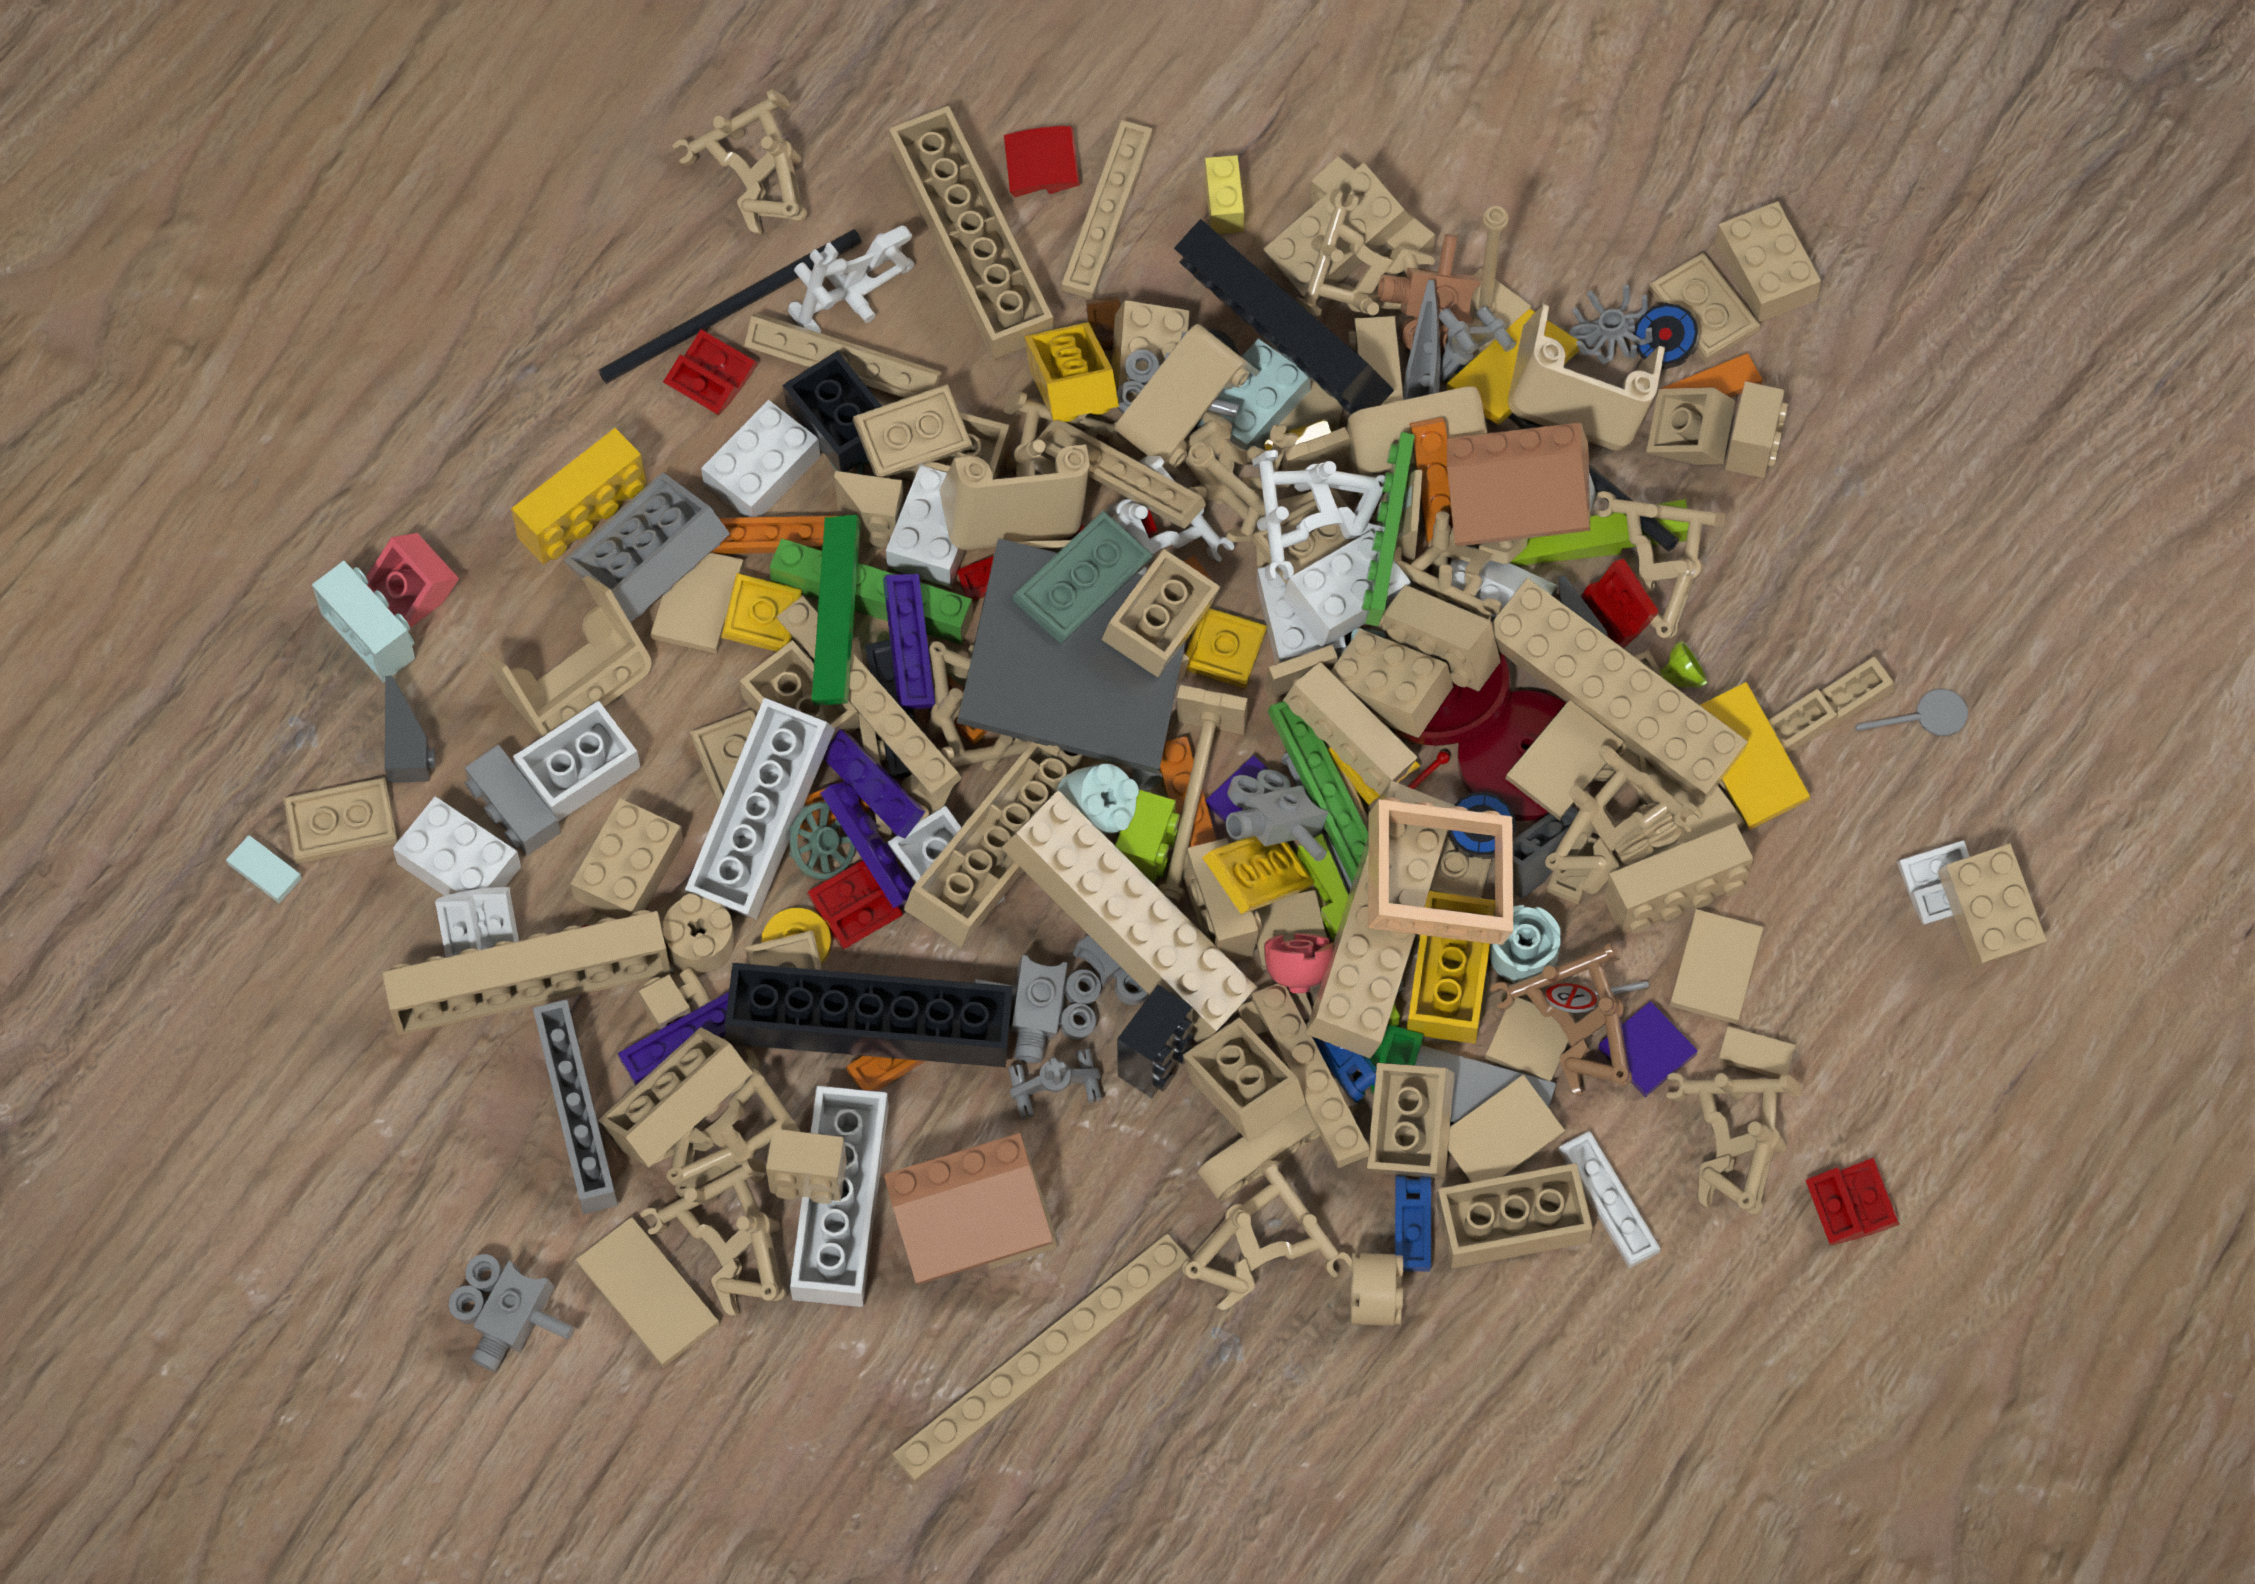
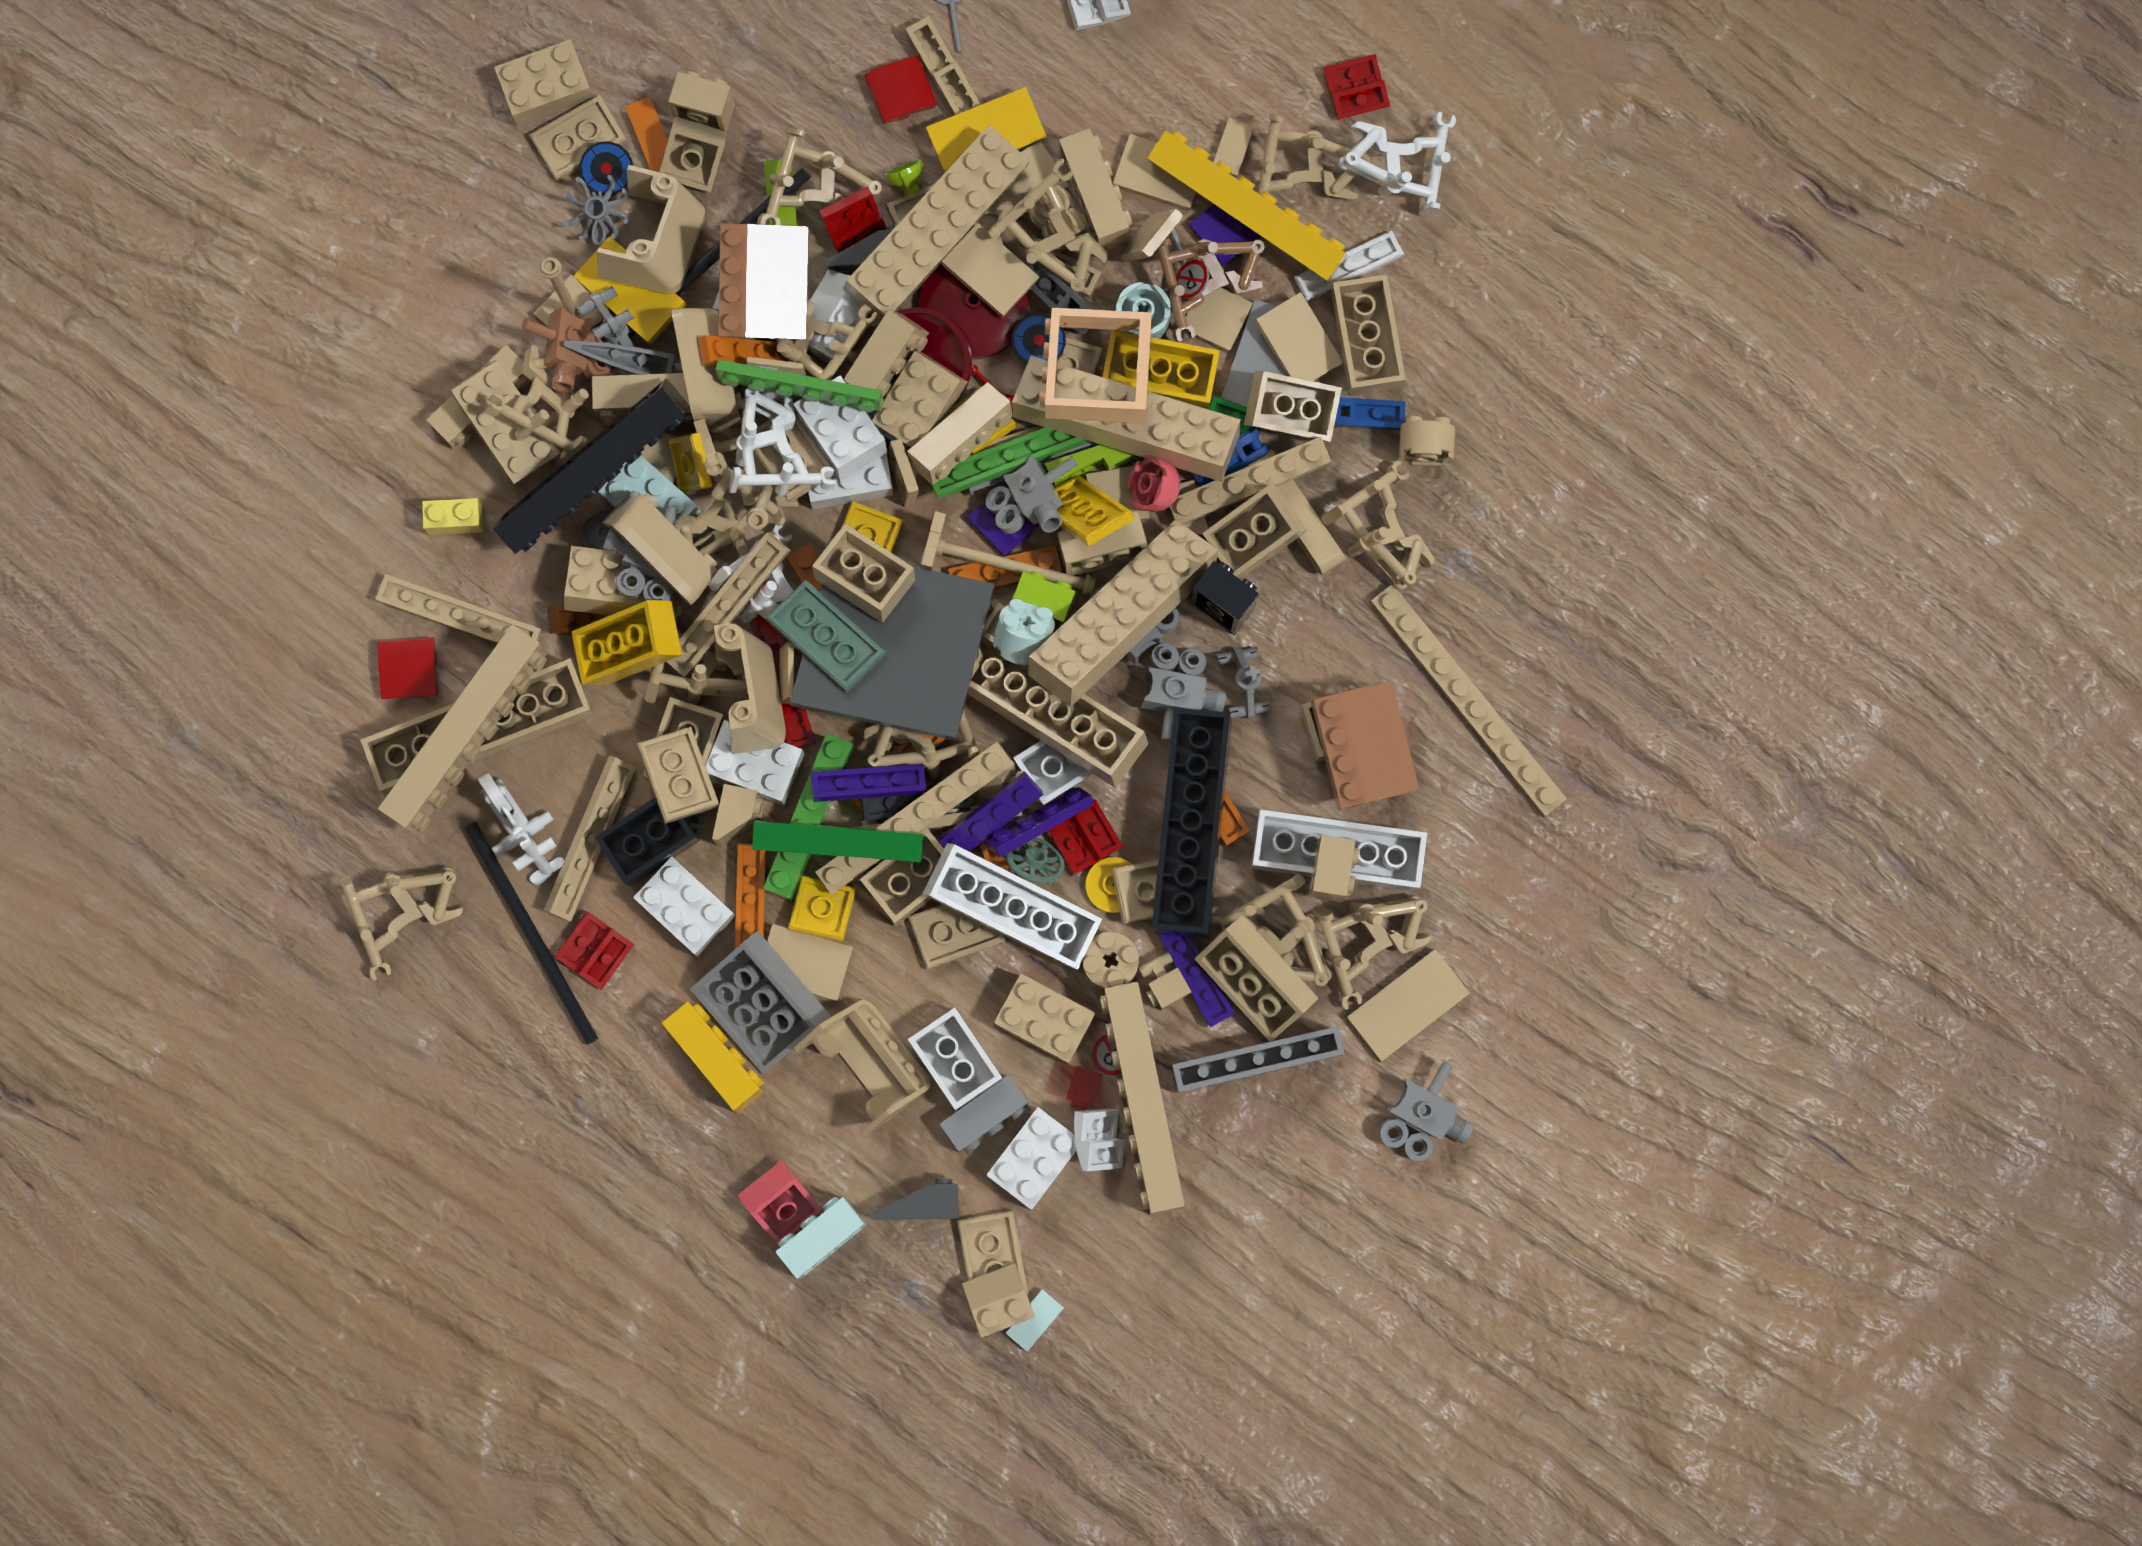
camera: 90 degrees left, 15 degrees up
(285, 819) = (998, 1300): none -> tan slope
(543, 910) = (1083, 1088): none -> clear red brick
(957, 200) = (464, 730): none -> tan brick
(1621, 941) = (1150, 235): none -> tan tile
(1673, 1062) = (1248, 206): none -> yellow brick
(1721, 1236) = (1392, 179): none -> white piece
(1797, 659) = (900, 89): none -> red slope

